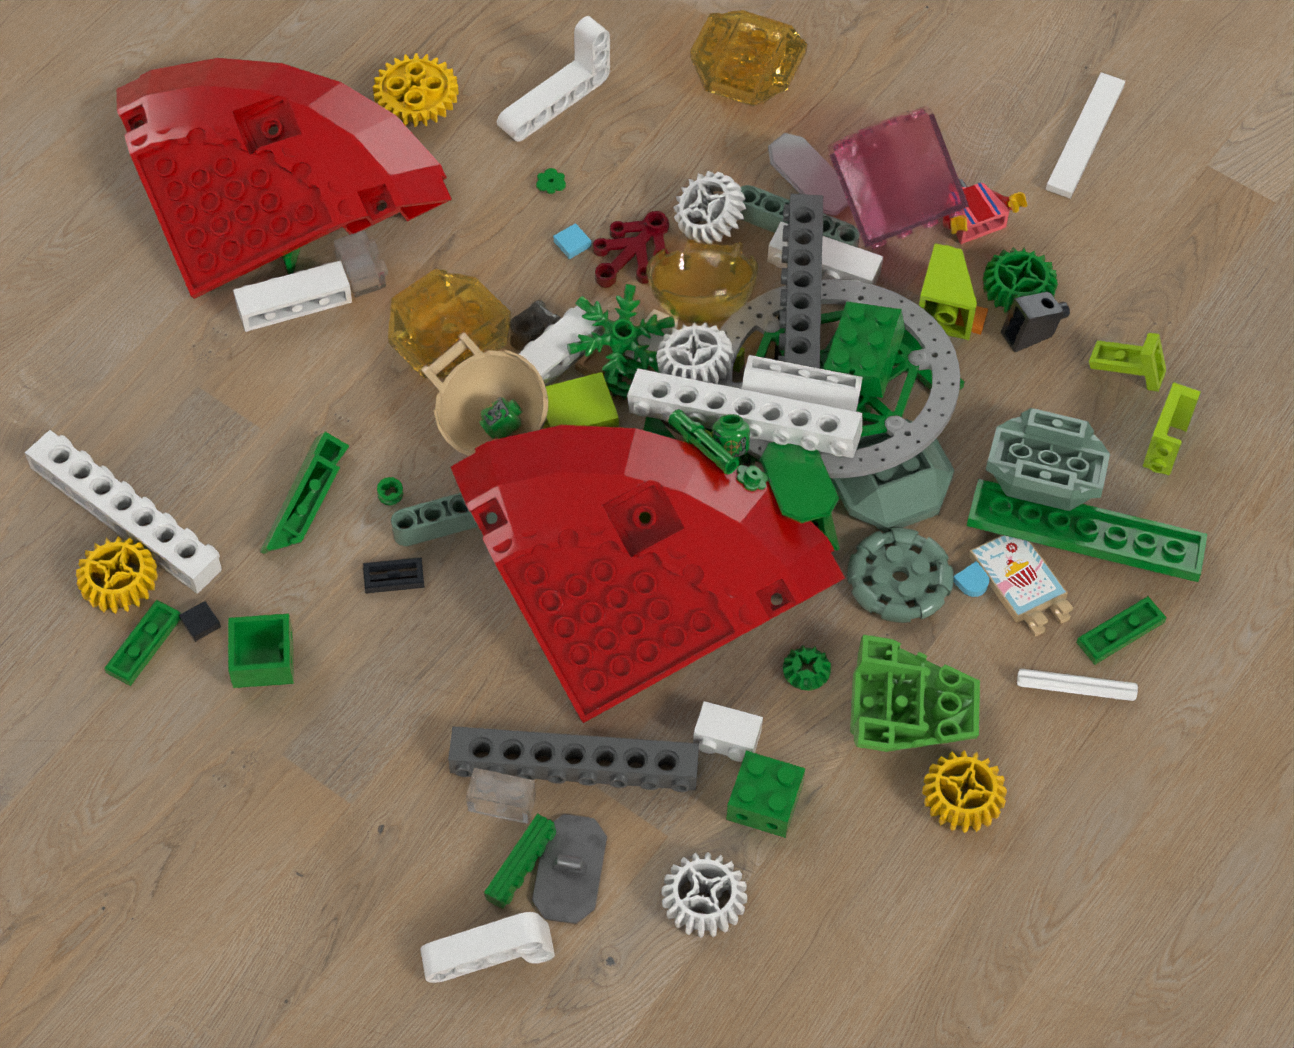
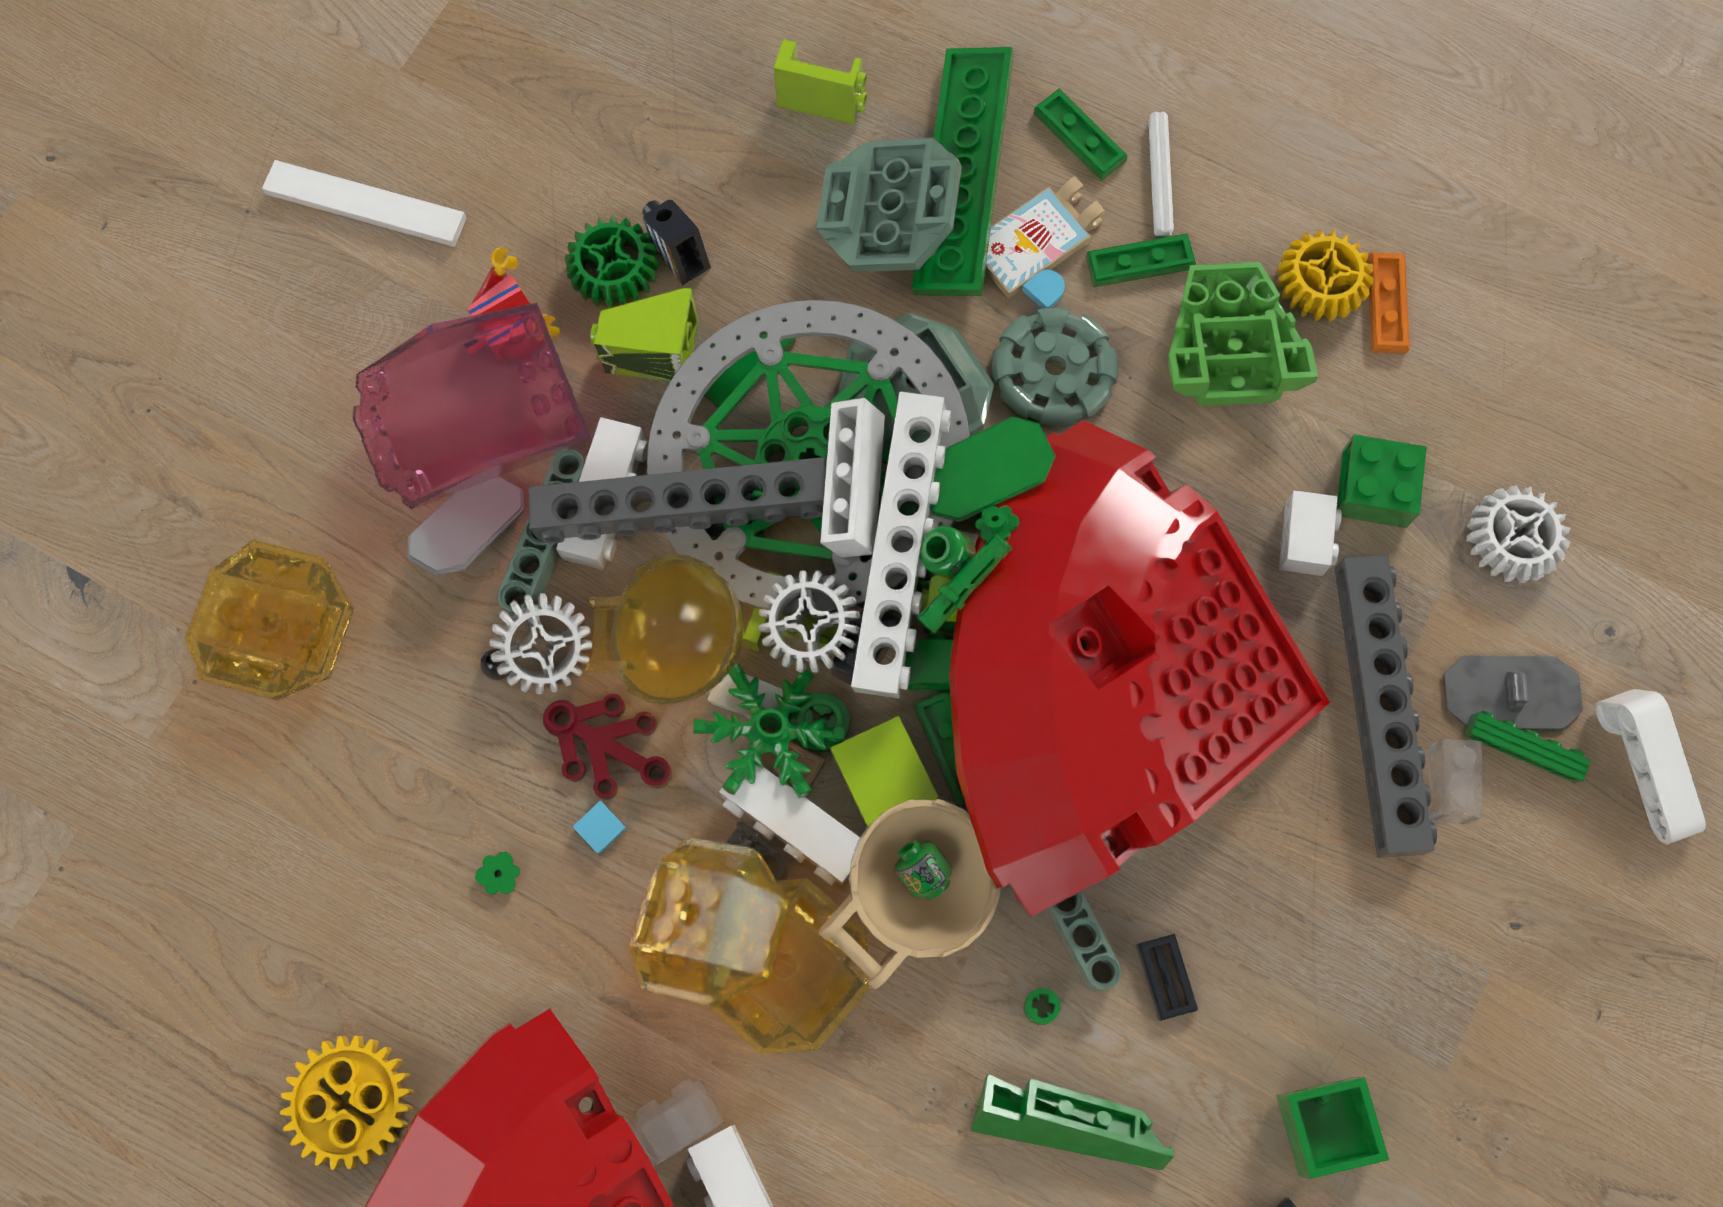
camera: 95 degrees left, 15 degrees up
(488, 277) = (736, 926): none -> clear yellow piece
(564, 87) = (360, 905): white beam -> none
(805, 679) = (1200, 473): green gear -> none
(867, 345) = (774, 411): green piece -> none
(937, 845) = (1388, 304): none -> orange tile
(994, 657) = (1140, 260): none -> green tile
(1132, 359) = (718, 132): lime bracket -> none

